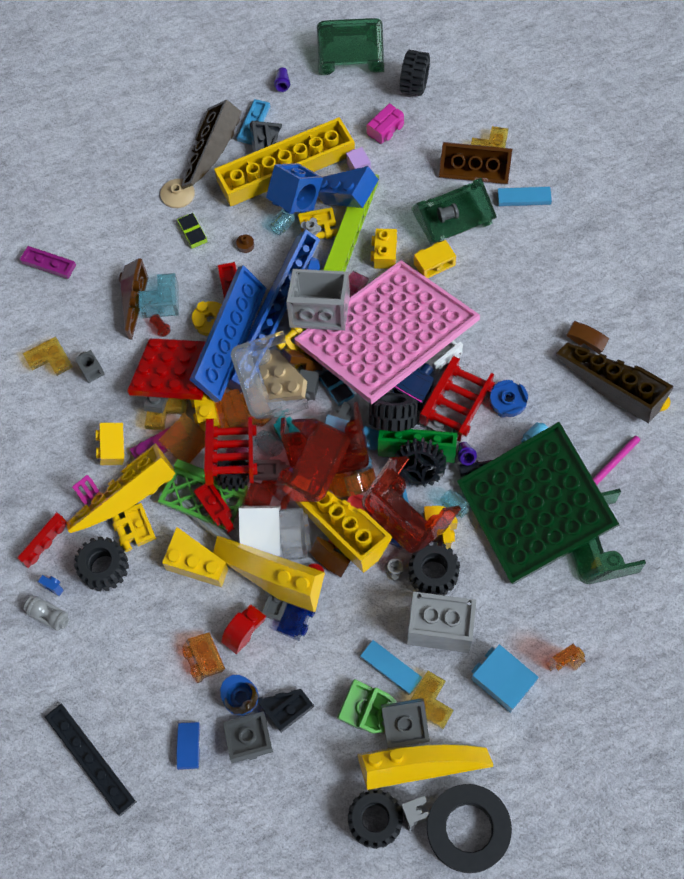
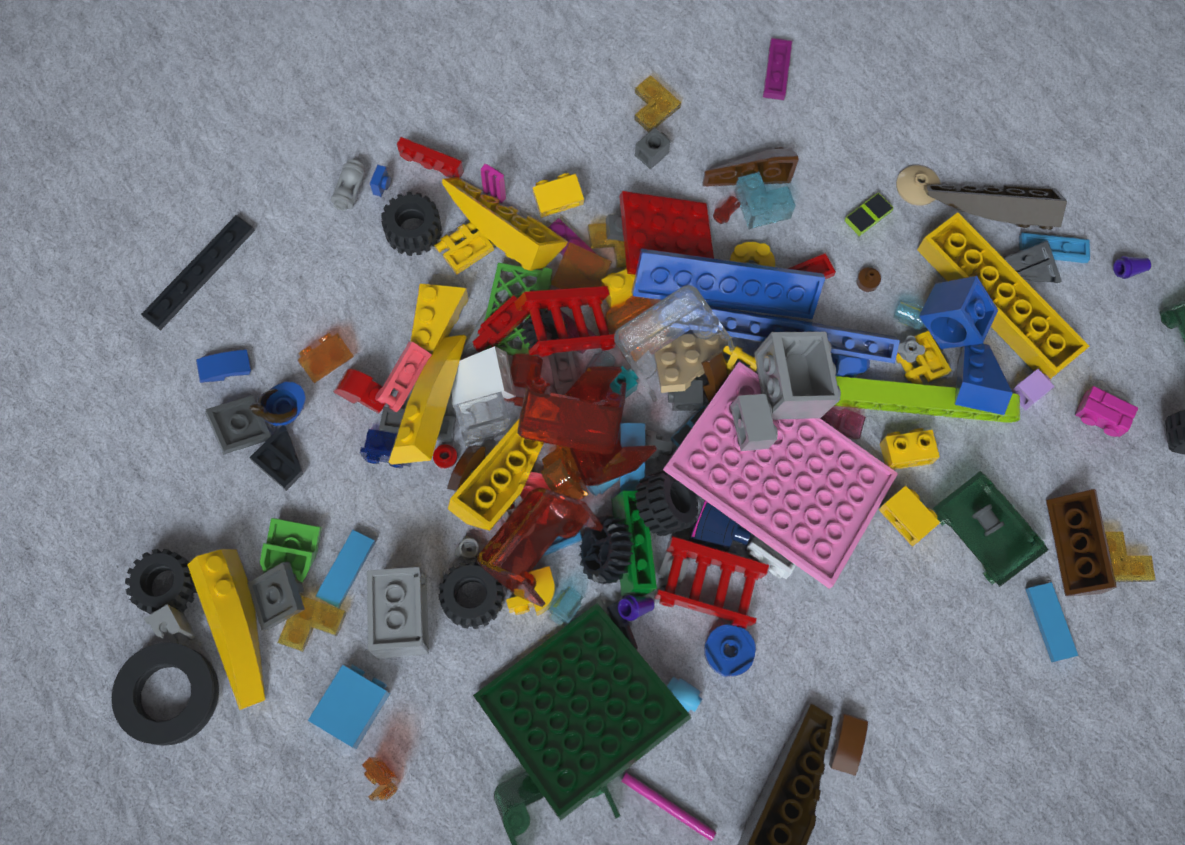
camera: 70 degrees right, 5 degrees up
(243, 588) = (403, 376): none -> coral plate
(348, 335) = (753, 422): none -> light grey brick

